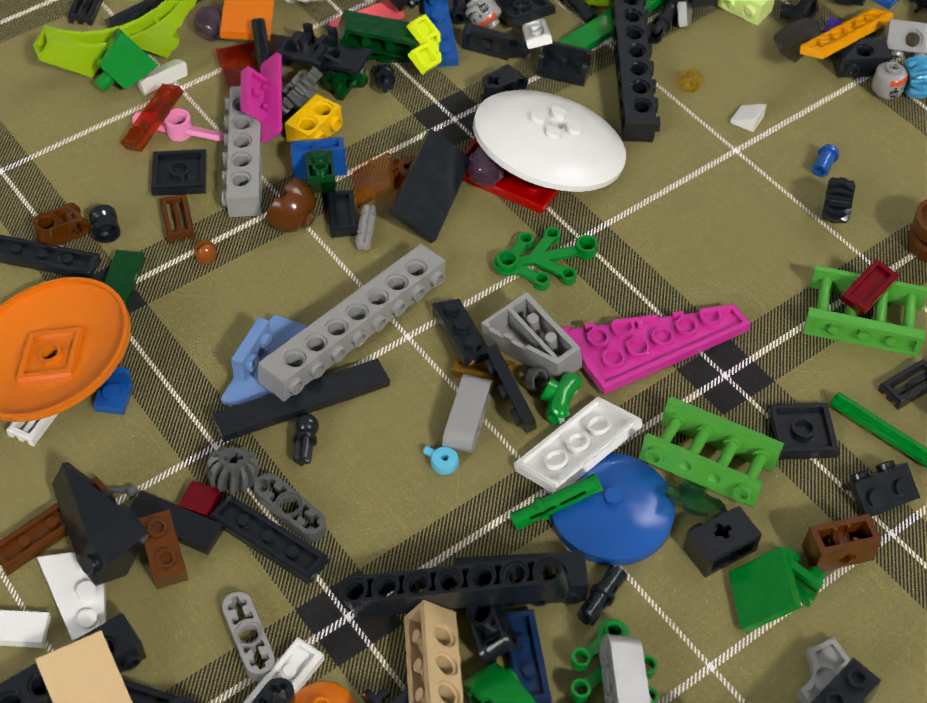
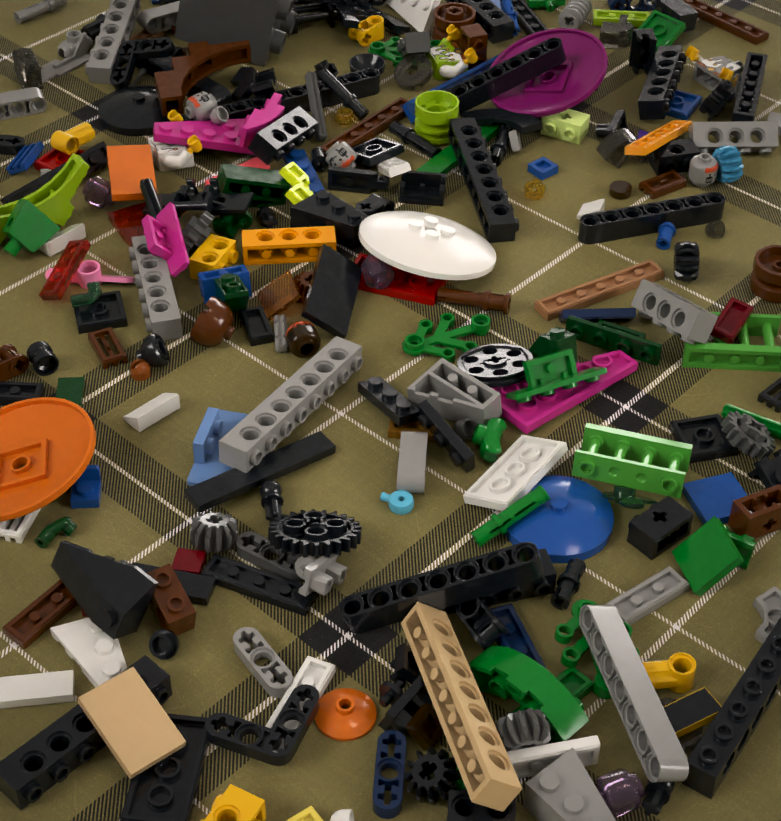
camera: 10 degrees left, 10 degrees down
(69, 435) = (51, 531): none -> dark green arm
(148, 598) = (164, 644): none -> black plate
(169, 155) = (89, 297): none -> clear green arm
(206, 305) = (153, 411): none -> white slope
(223, 232) = (154, 351): none -> black brick
(328, 538) = (319, 573): none -> light grey hips
(338, 490) = (314, 533): none -> black gear
(386, 240) = (303, 339): none -> dark brown head
(395, 669) = (404, 665): none -> black tile
(398, 116) = (285, 244): none -> light orange brick
(450, 87) = (329, 210): none -> black wedge
(589, 304) = (495, 364): none -> black wedge
(599, 217) = (485, 300): none -> reddish brown pin
(647, 328) = (551, 372): none -> green bracket
(658, 296) = (553, 341): none -> dark green slope
(686, 625) = (649, 595): none -> light grey tile
(707, 52) = (542, 168): none -> blue tile
(720, 255) = (594, 315): none -> dark blue tile
(732, 220) = (598, 289): none -> medium nougat tile
(732, 288) = (614, 338): none -> dark green bracket
(789, 92) = (620, 189): none -> dark brown tile
(795, 509) = (713, 496): none -> blue tile
(805, 268) = (674, 312): none -> light grey brick
(809, 135) = (646, 218): none -> black beam
(842, 92) = (663, 184): none -> reddish brown tile
(852, 438) = (748, 435): none -> dark grey gear
(885, 159) = (715, 229): none -> clear smoke hinge

